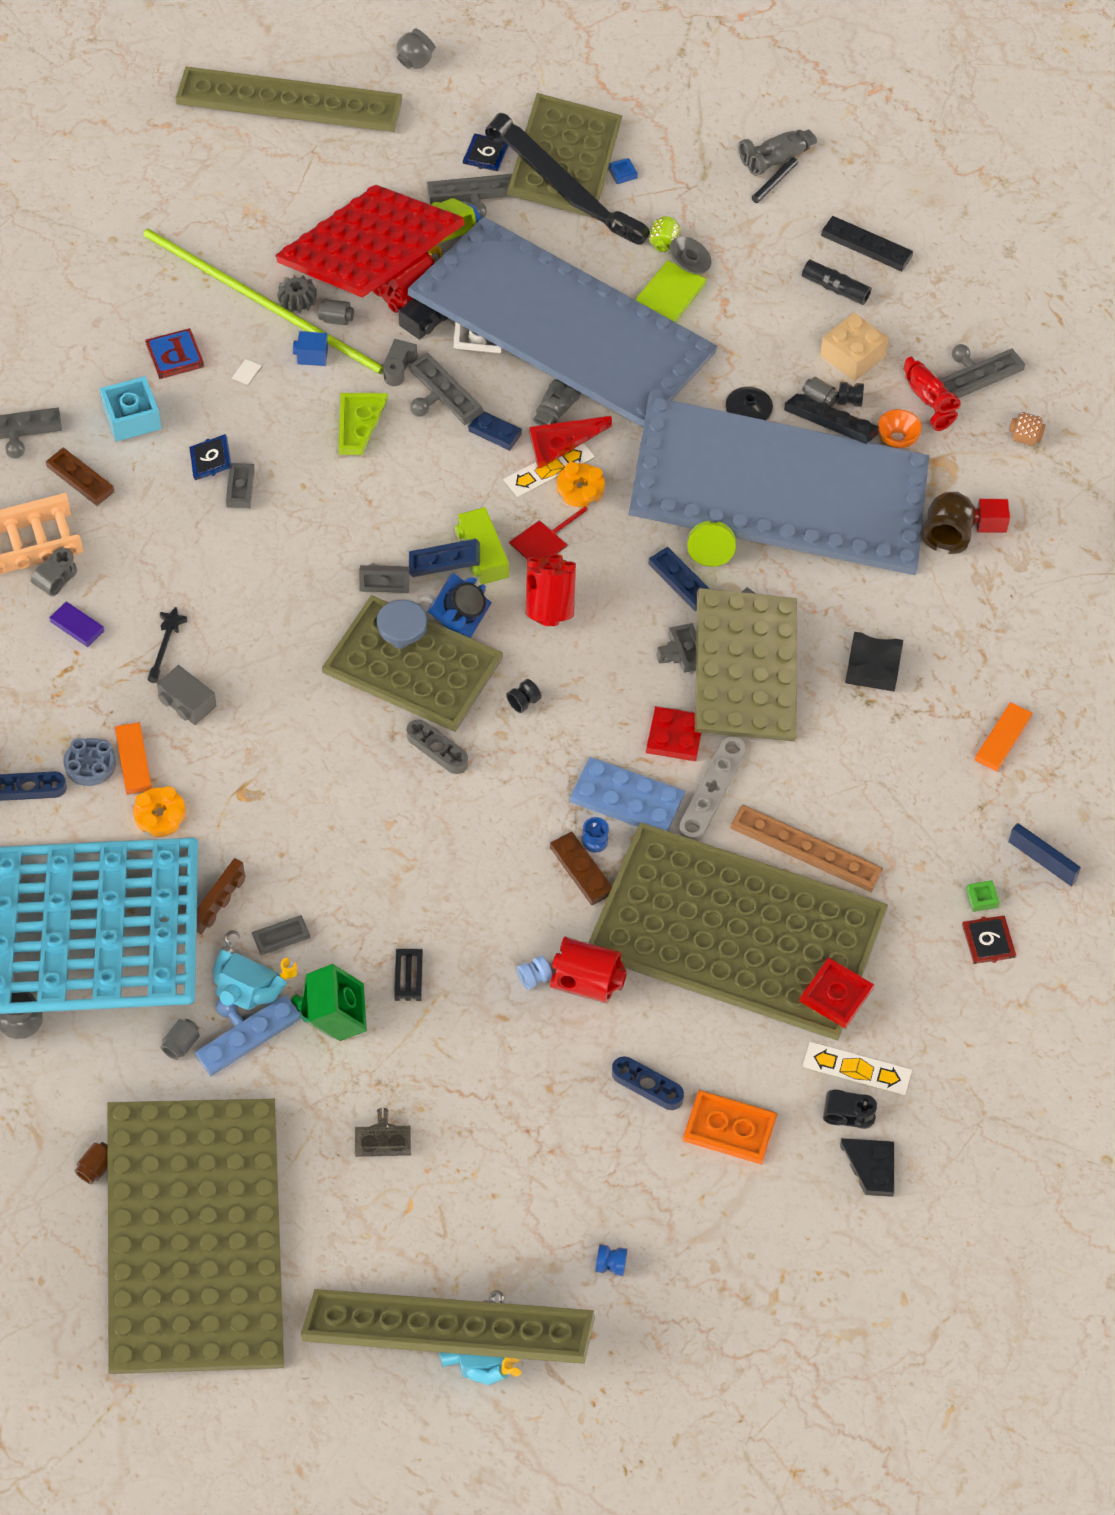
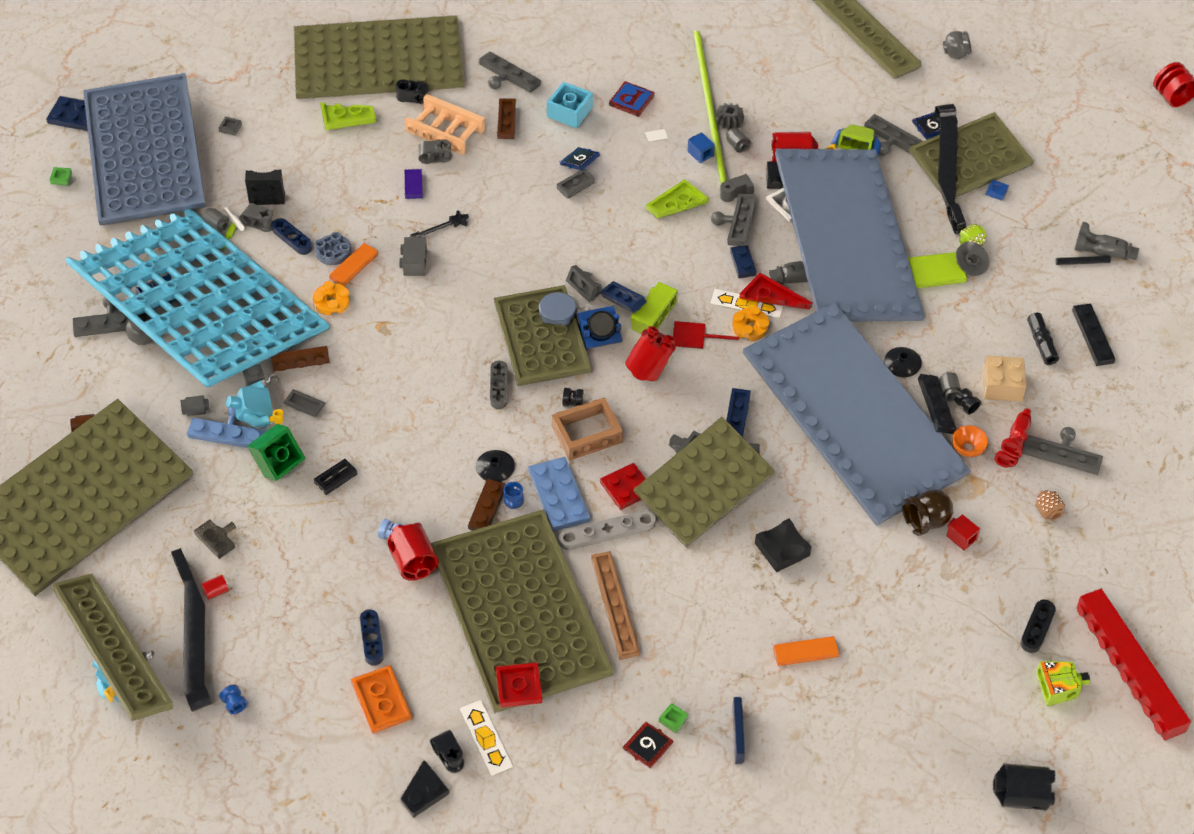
camera: 50 degrees right, 5 degrees down
(206, 956) = (253, 374): none -> dark grey brick
(369, 240) = (797, 115): red plate -> none
(448, 1182) = (215, 587): none -> red piece
(535, 834) = (495, 471): none -> black dish
(569, 740) = (591, 443): none -> medium nougat window
(572, 1290) = (194, 638): none -> black piece
(711, 543) = (773, 407): lime tile -> none

